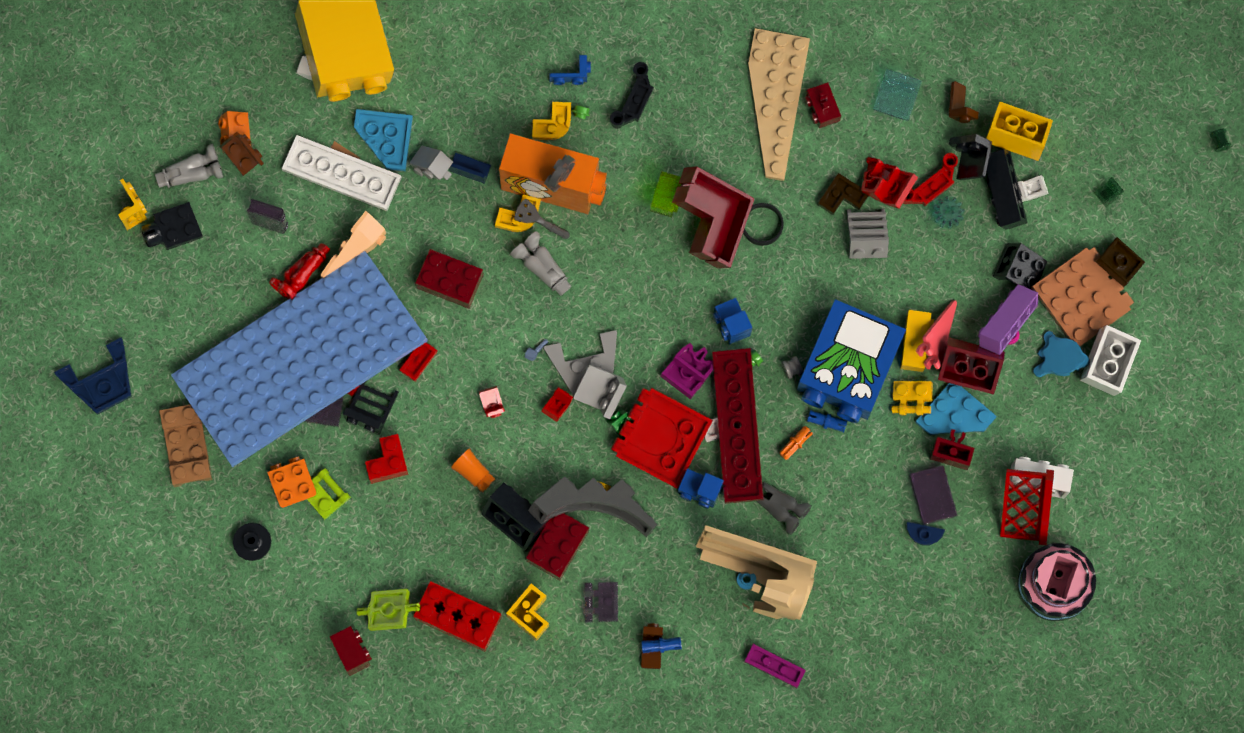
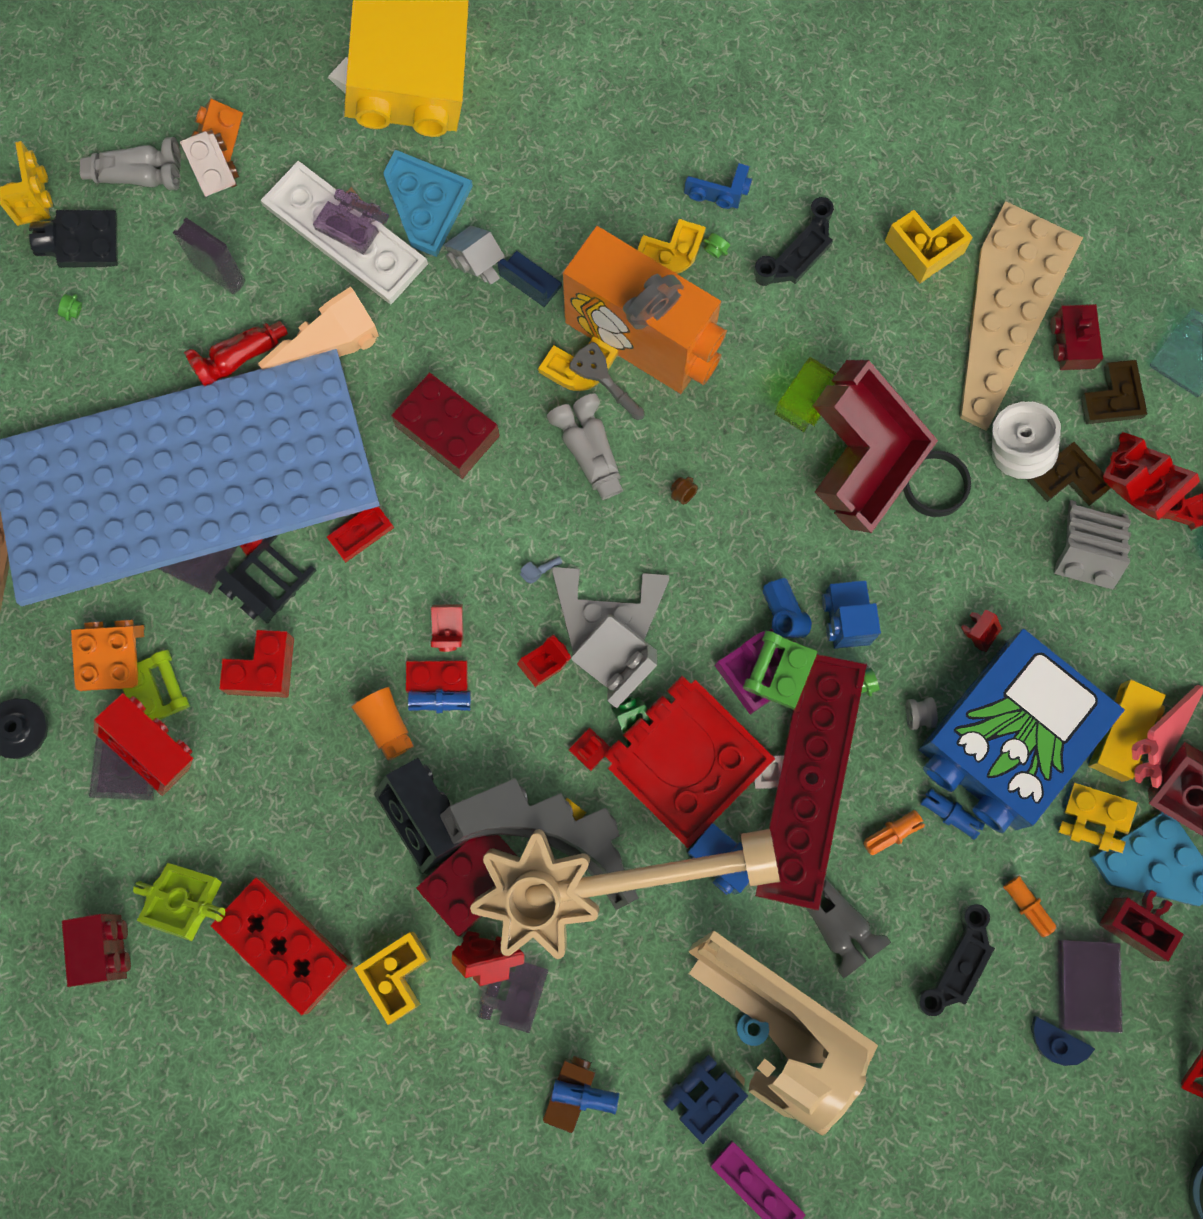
camera: 20 degrees right, 0 degrees up
(184, 274) = (69, 307): none -> bright green plate
(324, 545) = (115, 778): none -> plate
(337, 525) = (143, 743): none -> red brick
(346, 171) = (346, 227): none -> clear purple plate
(494, 434) = (433, 675): none -> red plate
(501, 448) = (439, 701): none -> blue pin
(580, 586) = (484, 959): none -> red plate
(601, 449) = (589, 749): none -> red tile
(602, 536) = (543, 894): none -> tan piece
(608, 274) = (682, 487): none -> reddish brown plate
(695, 333) = (786, 610): none -> blue piece
(706, 367) = (790, 674): none -> bright green plate
(710, 77) = (927, 250): none -> yellow brick
(736, 628) = (712, 1106): none -> dark blue plate
(807, 182) = (1026, 440): none -> white wheel
(816, 306) = (984, 631): none -> red tile
(857, 506) = (963, 965): none -> black plate
(861, 137) = (1123, 398): none -> dark brown plate
(887, 461) = (1030, 906): none -> orange axle

